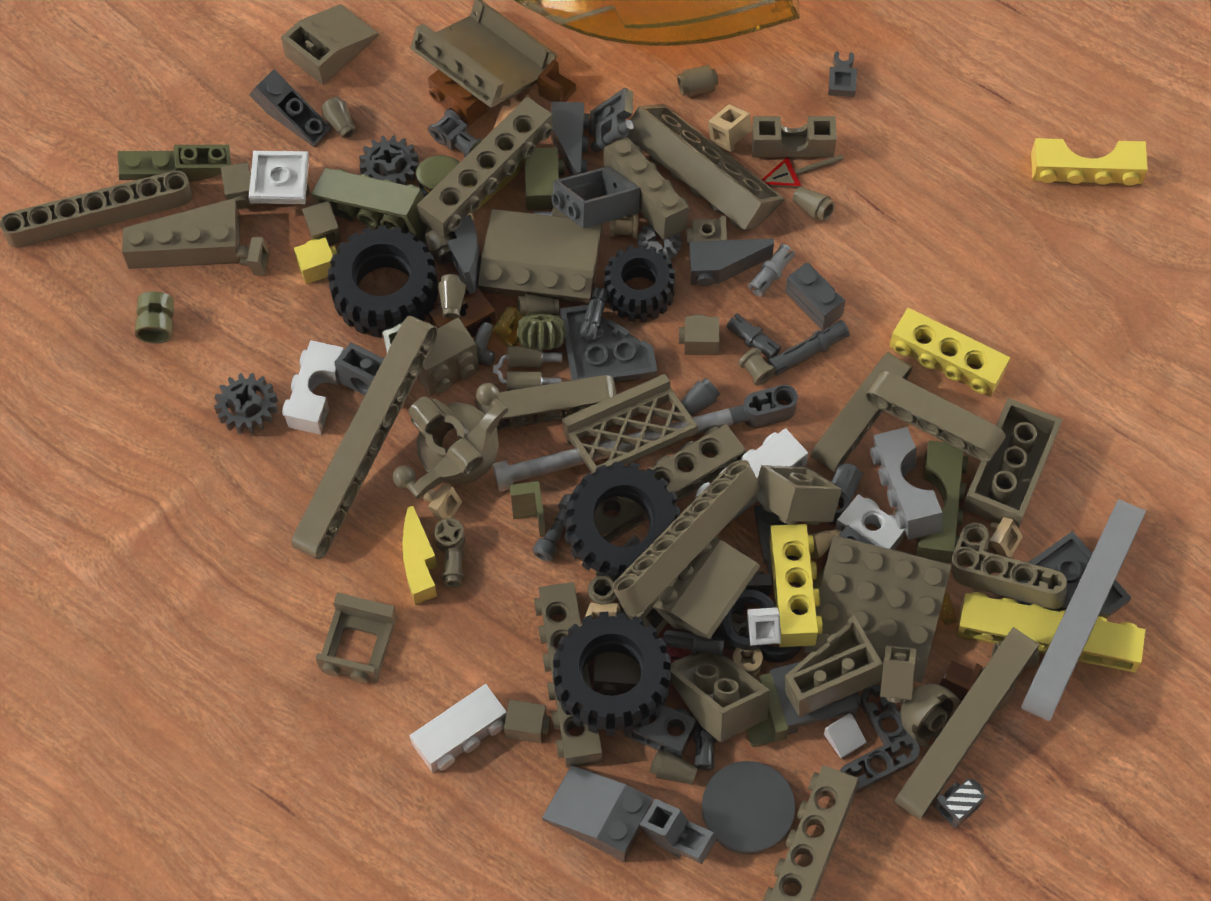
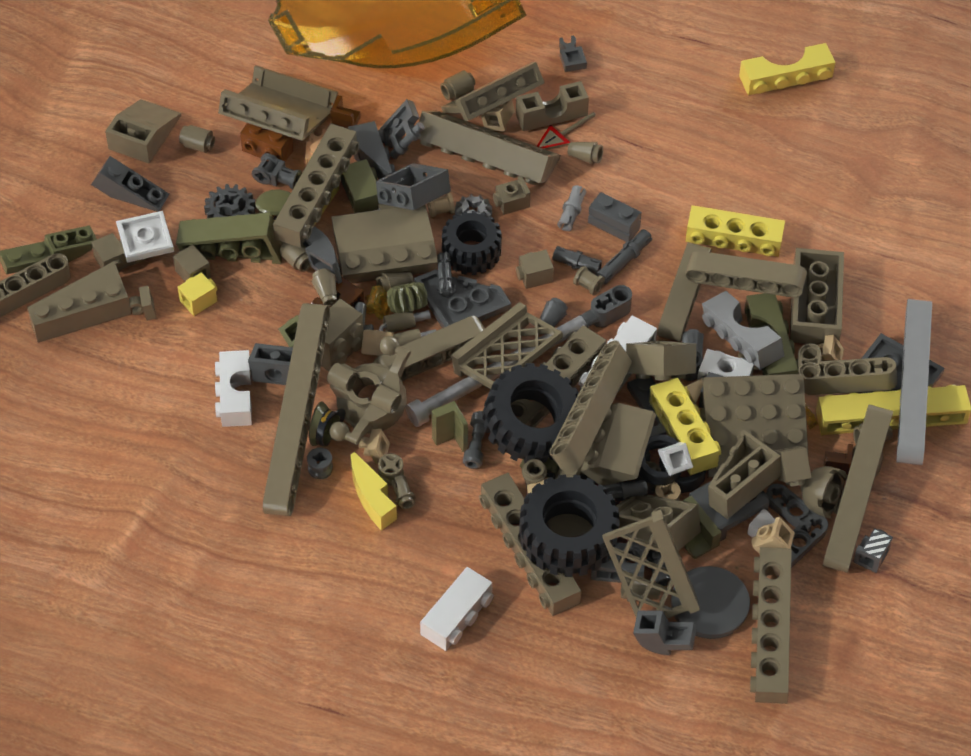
camera: 20 degrees left, 10 degrees down
(154, 317) = (78, 370): olive wheel -> none
(253, 411) = (169, 413): dark grey gear -> none
(338, 115) = (171, 181): dark tan cone -> none
(364, 617) = (344, 548): dark tan window -> none
(377, 511) = (324, 467): none -> dark grey wheel
(378, 250) = (260, 269): black tyre -> none
(383, 69) = (197, 138): none -> dark tan brick
(389, 458) = (321, 422): none -> piece
(488, 372) = (372, 340): none -> tan slope
(526, 721) = (509, 588): dark tan brick -> none
(598, 811) = (594, 637): dark grey slope -> none
(657, 200) = (465, 177): dark tan brick -> none
(709, 749) = (669, 556): none -> dark tan fence
(720, 260) = (531, 209): dark grey slope -> none
(733, 103) = (496, 92): none -> dark tan fence
(839, 749) = (773, 536): none -> tan brick

